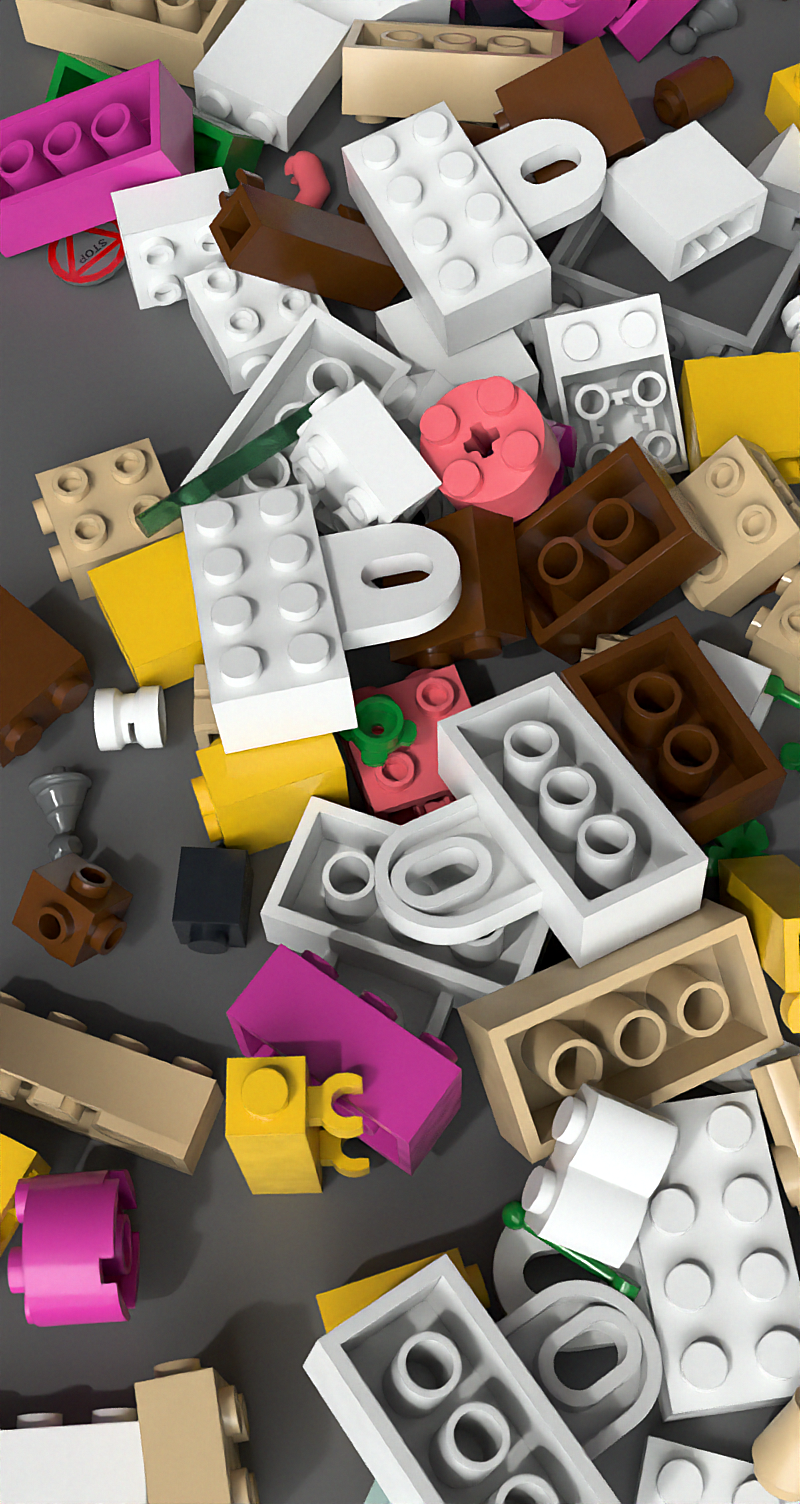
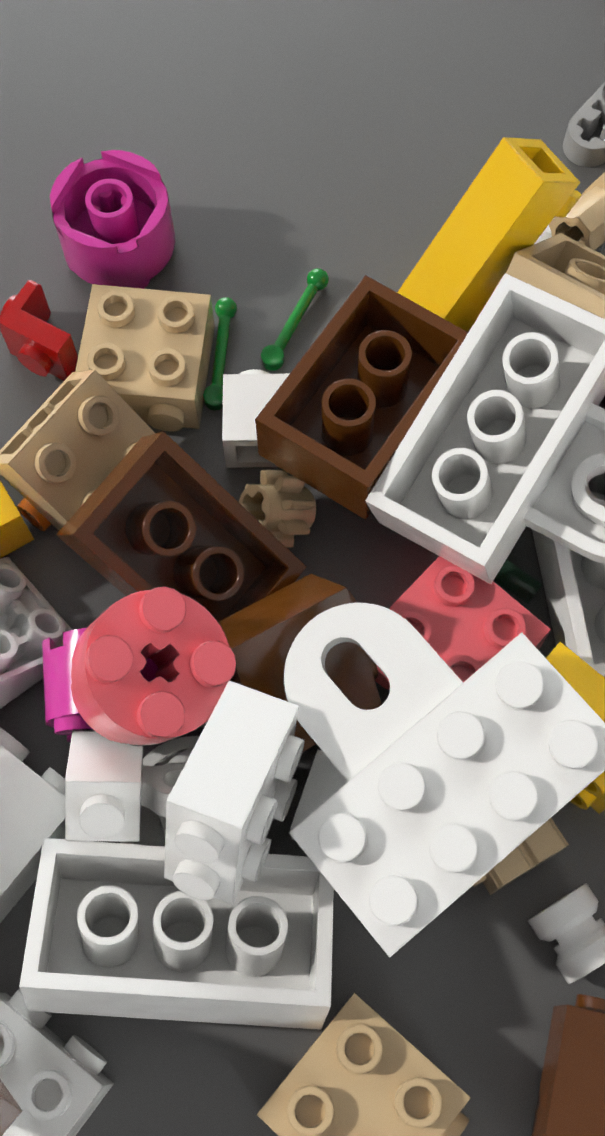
camera: 120 degrees left, 5 degrees up
(152, 611) = (452, 974): yellow brick -> none
(224, 472) = (271, 949): clear green bar -> none
(383, 712) = (478, 633): green plate -> none

